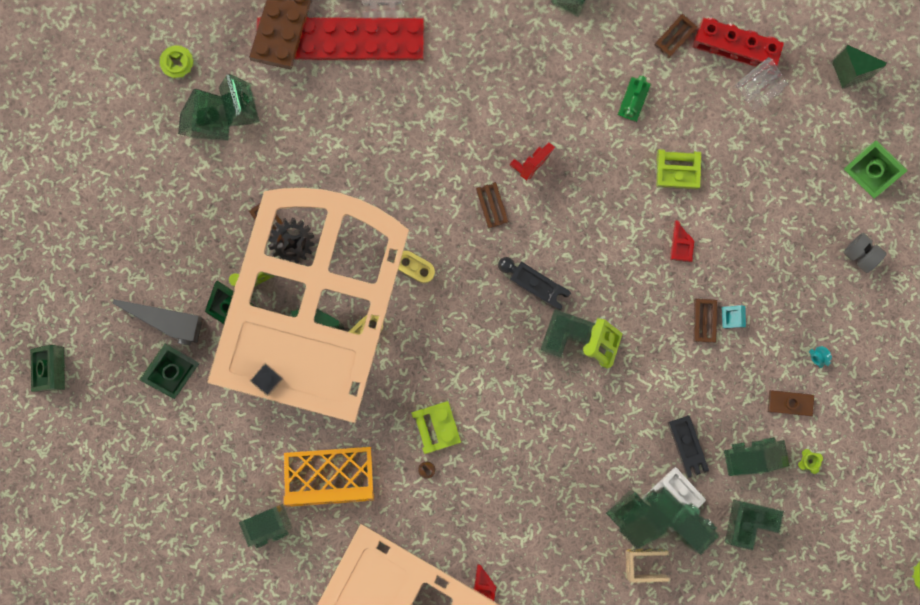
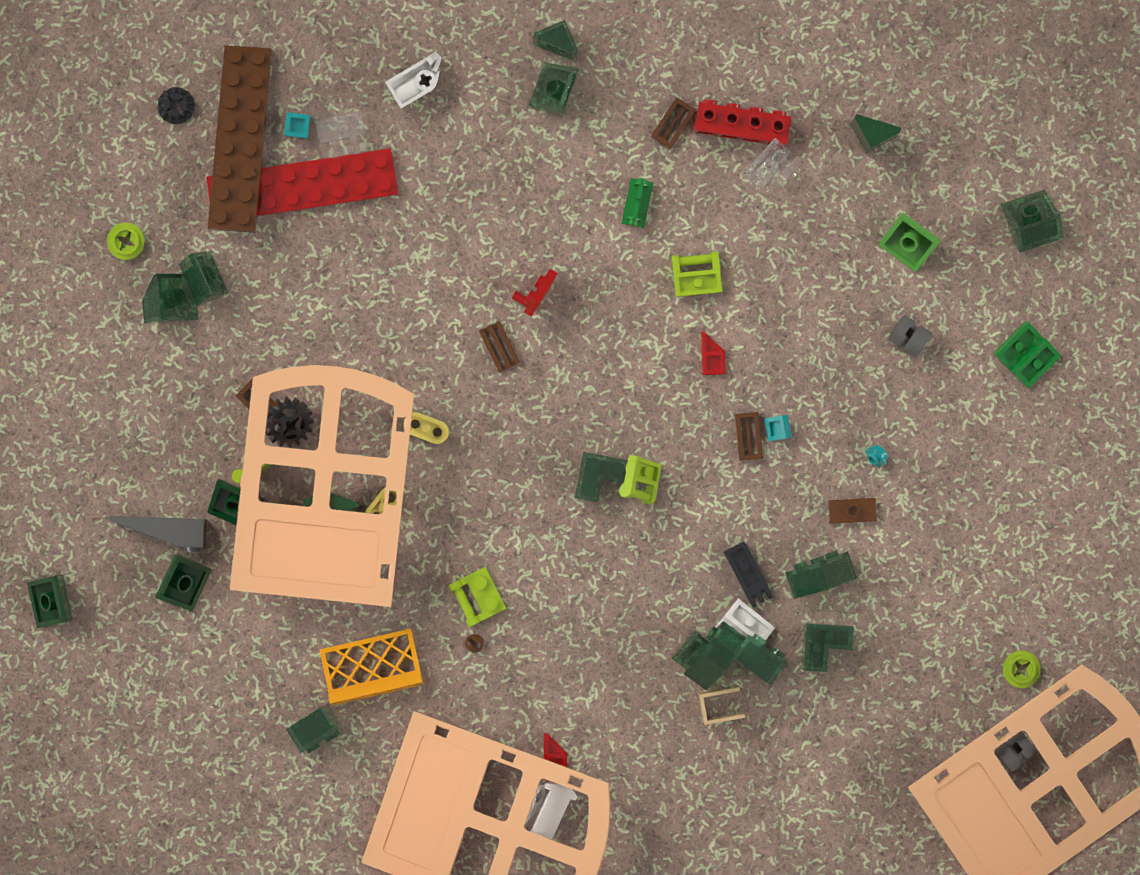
camera: 10 degrees left, 5 degrees up
(266, 379) = (291, 576): black plate -> none
(534, 282) = (556, 424): black plate -> none
(816, 458) = (876, 564): lime plate -> none

